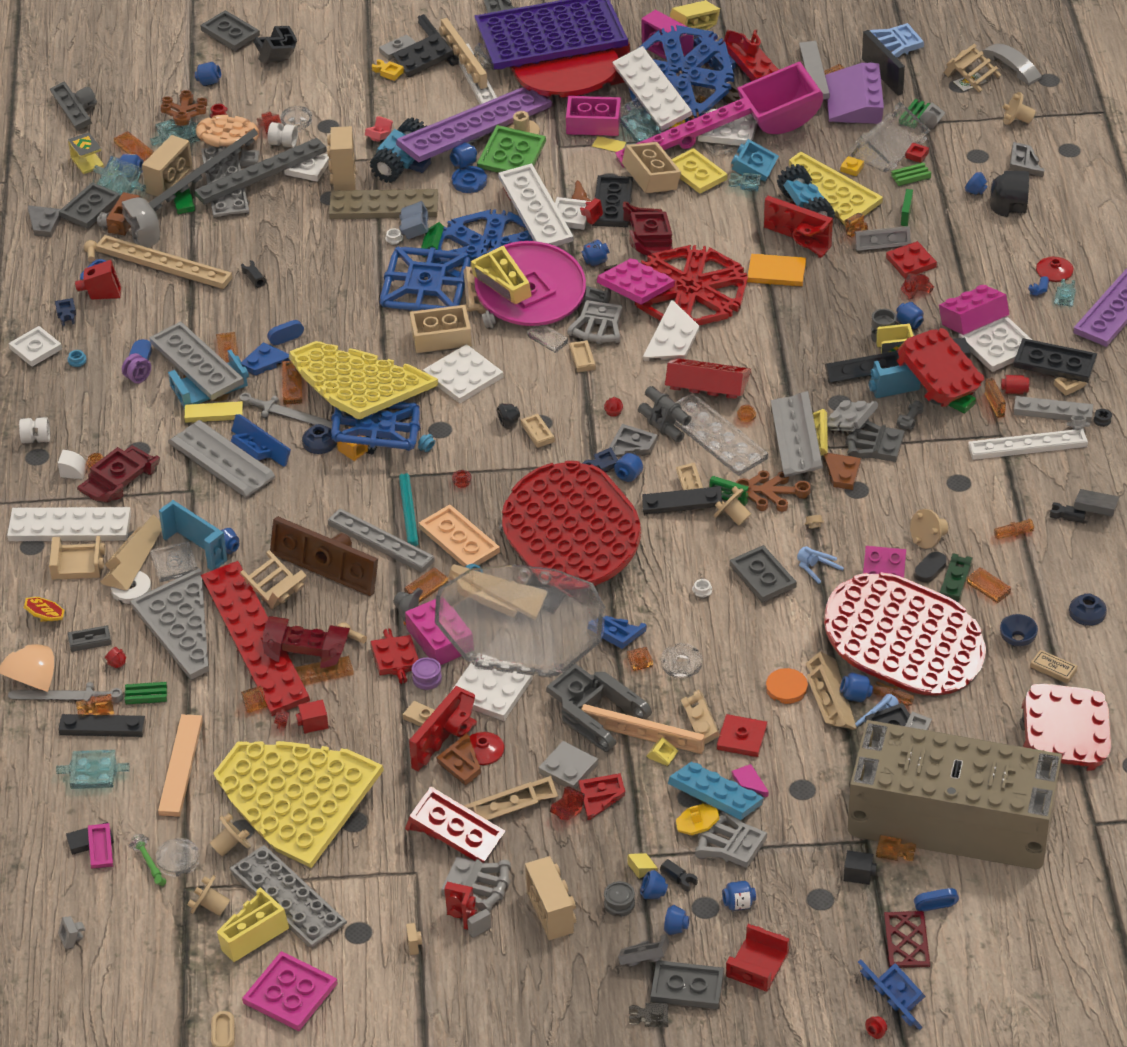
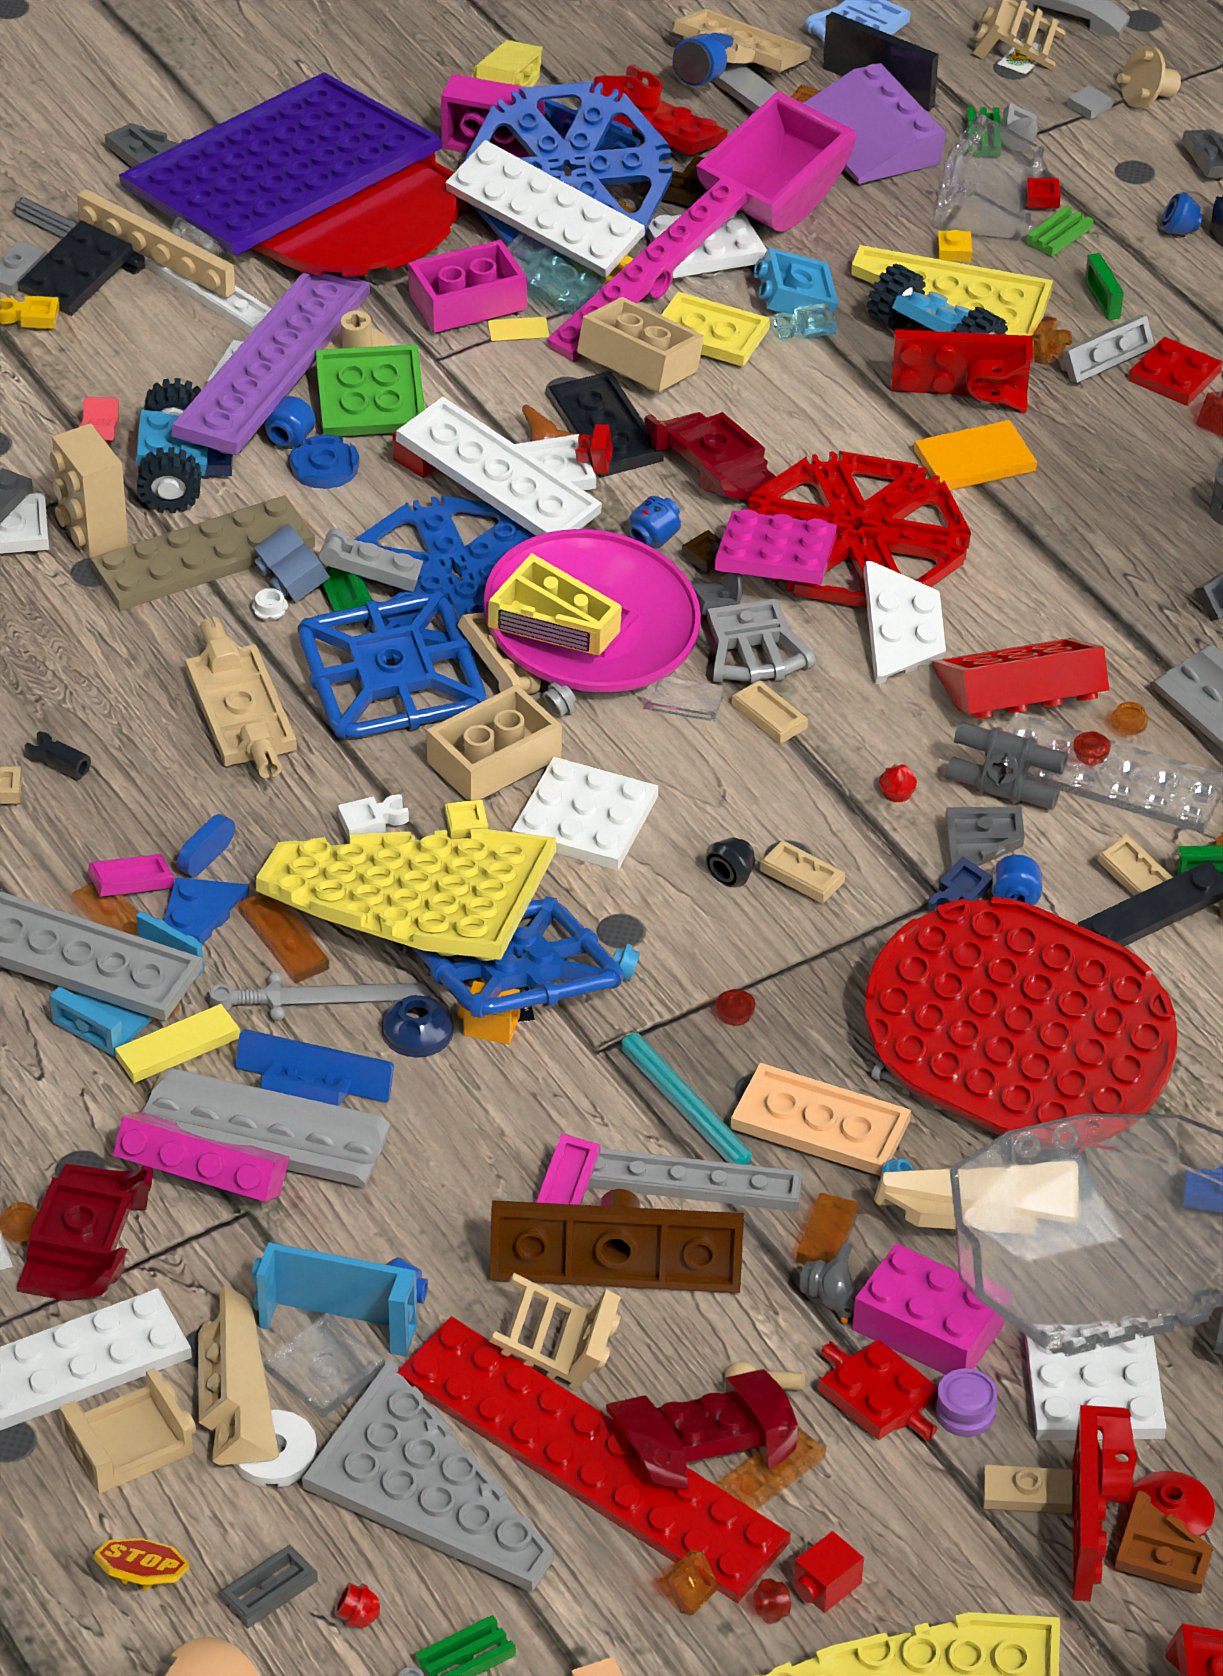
camera: 30 degrees left, 0 degrees up
(169, 449) = (216, 1163): none -> dark pink arch
(244, 334) = (130, 875): none -> dark pink tile
(331, 521) = (569, 1171): none -> dark pink tile
(347, 275) = (240, 701): none -> tan plate
(365, 343) = (370, 817): none -> white plate
(409, 357) = (465, 816): none -> light yellow tile
(446, 229) = (370, 560): none -> light grey plate
(710, 419) = (1091, 748): none -> clear red plate
(816, 30) = (717, 39): none -> tan plate
(982, 114) = (1090, 102): none -> light grey tile

